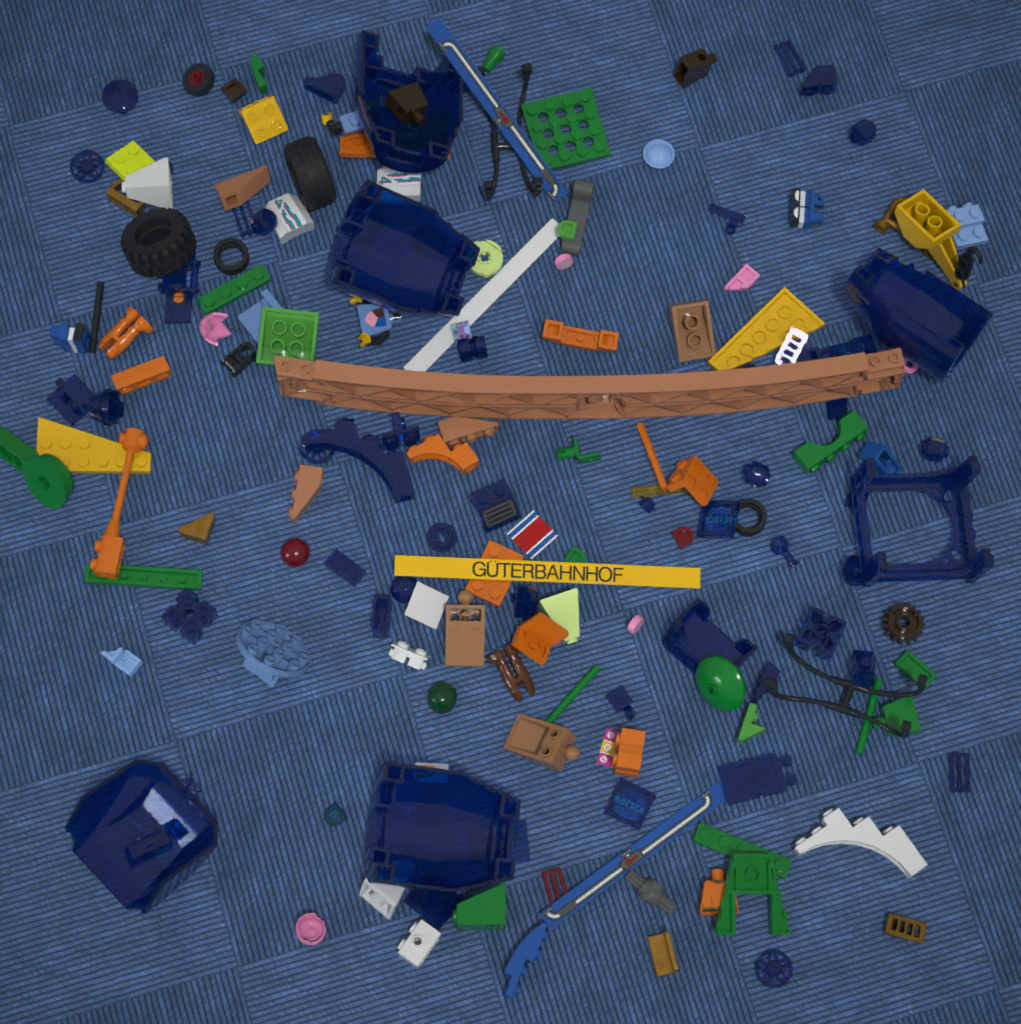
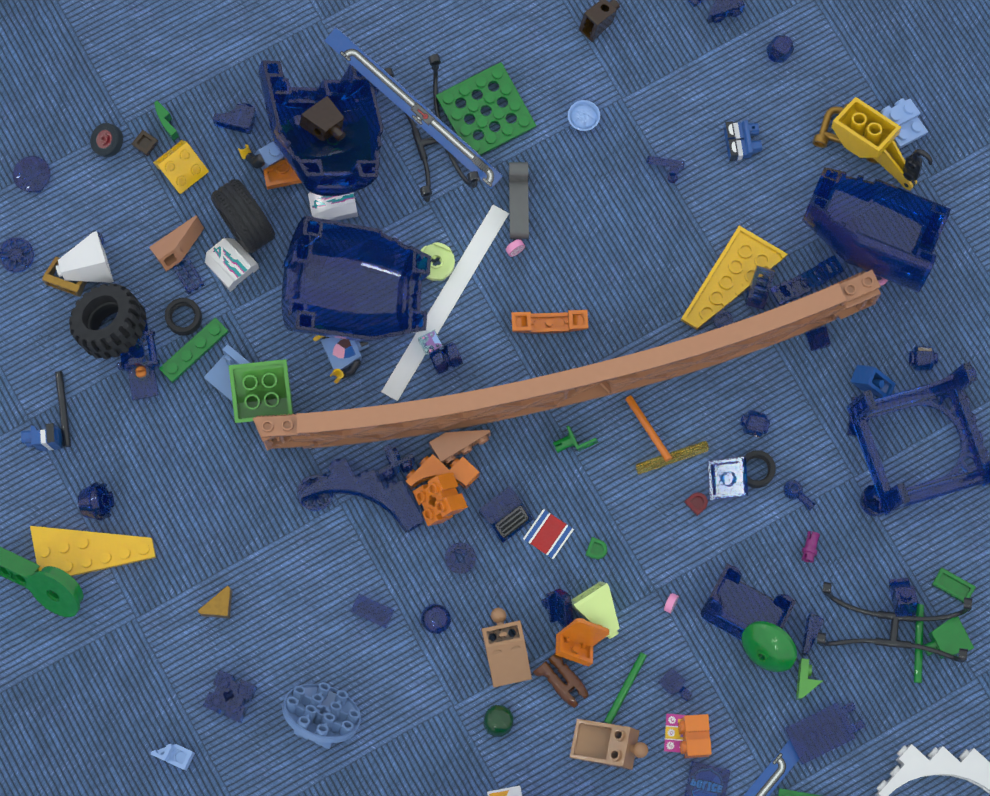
camera: 10 degrees left, 5 degrees up
(71, 399) = (58, 499): clear blue bracket -> none
(111, 546) = (135, 644): orange bar -> none
(125, 340) = (94, 431): orange piece -> none
(128, 160) = (58, 240): neon yellow plate -> none
(141, 375) = (122, 459): orange panel -> none
(150, 577) = (174, 666): green plate -> none
(212, 327) = (182, 394): bright pink piece -> none
(239, 360) = (216, 422): black piece -> none
(263, 222) = (207, 274): clear blue head -> none
(295, 552) = (319, 606): dark red hair -> none
(308, 487) = (316, 537): nougat slope -> none
(381, 619) = (421, 659): clear blue brick -> none
(403, 651) = (449, 682): white hinge -> none
(426, 605) = (461, 631): white sticker -> none
(435, 476) = (440, 499): none -> orange brick
(493, 58) = (397, 51): green cone -> none
(493, 590) = (520, 582): orange plate -> none
(546, 571) = (571, 569): yellow sticker -> none
(567, 230) = (512, 216): bright green tile -> none
(648, 504) = (655, 478): clear blue plate -> none
(692, 329) = (658, 289): medium nougat slope -> none
(695, 478) = (696, 442): orange bracket -> none
(743, 279) = (696, 226): bright pink tile -> none
(782, 604) = (809, 550): none -> magenta pin
(811, 456) = (804, 392): green arch -> none
(825, 644) = (863, 565): clear blue brick -> none
(901, 633) = (924, 549): dark brown gear -> none

